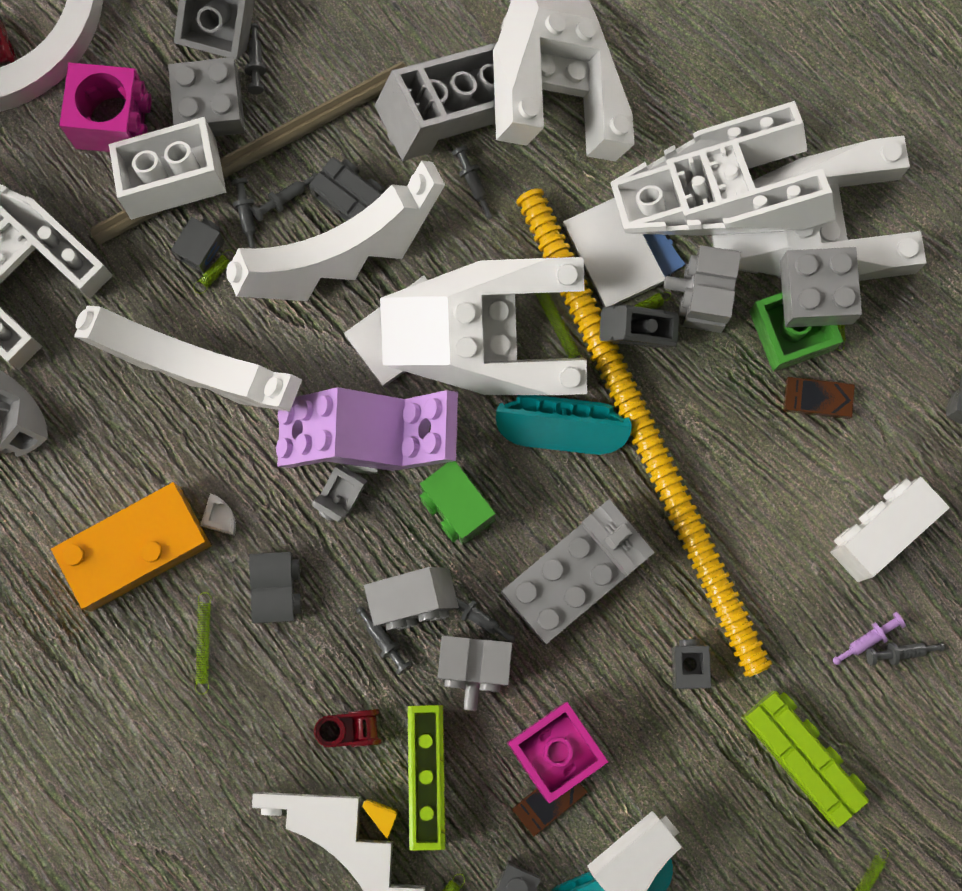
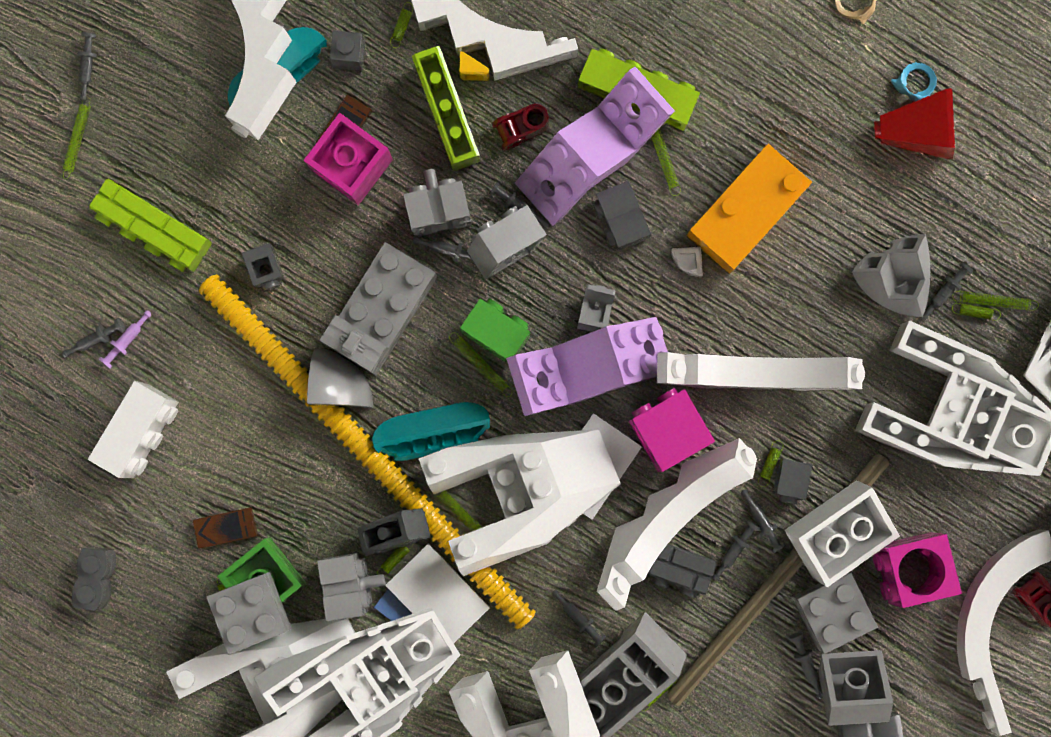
camera: 160 degrees right, 5 degrees up
(202, 726) = (604, 72): none -> lime brick
(274, 671) = (594, 146): none -> lavender bracket
(306, 333) = (670, 429): none -> dark pink brick
(482, 474) = (498, 378): none -> lime piece
(650, 507) = (337, 381): none -> light grey brick

